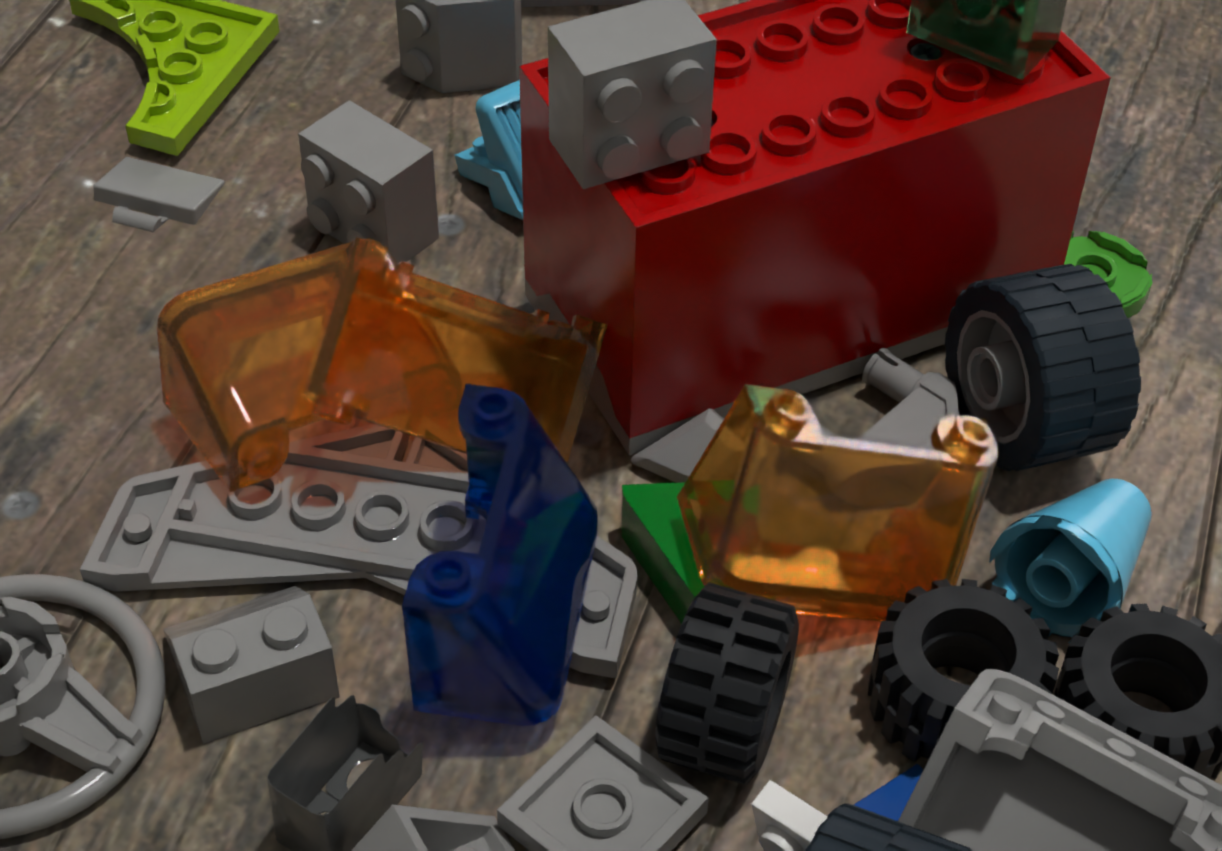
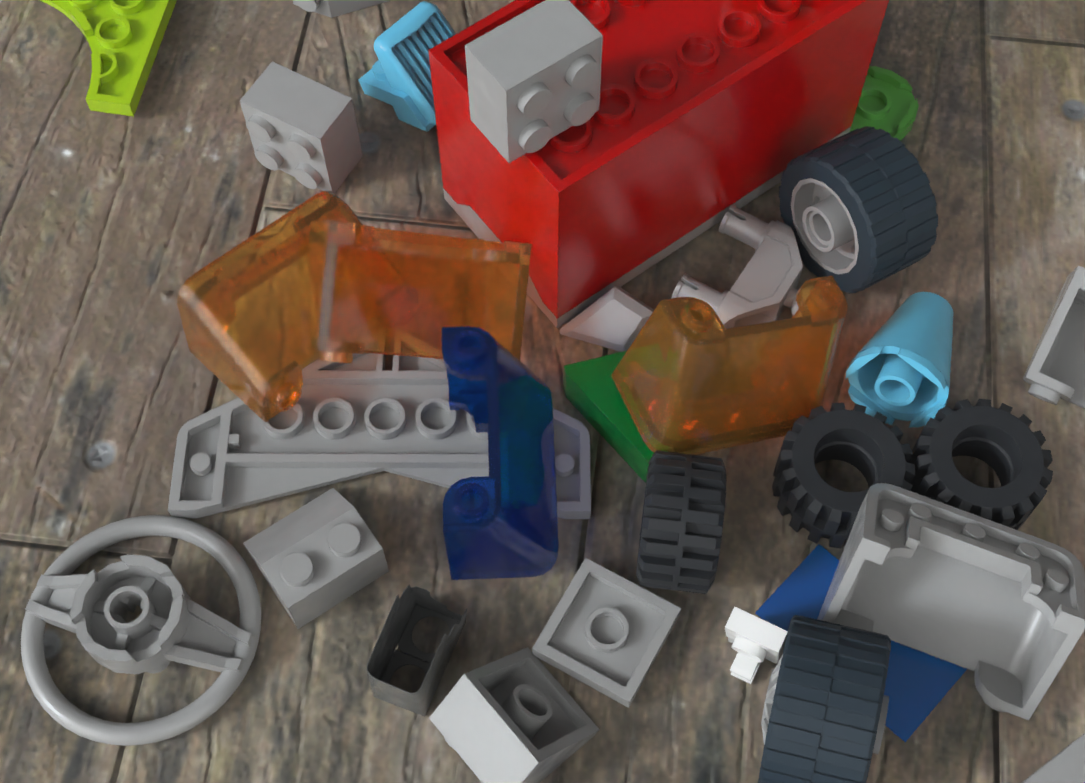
camera: 10 degrees left, 15 degrees up
(155, 191) = (125, 151): light grey piece -> none

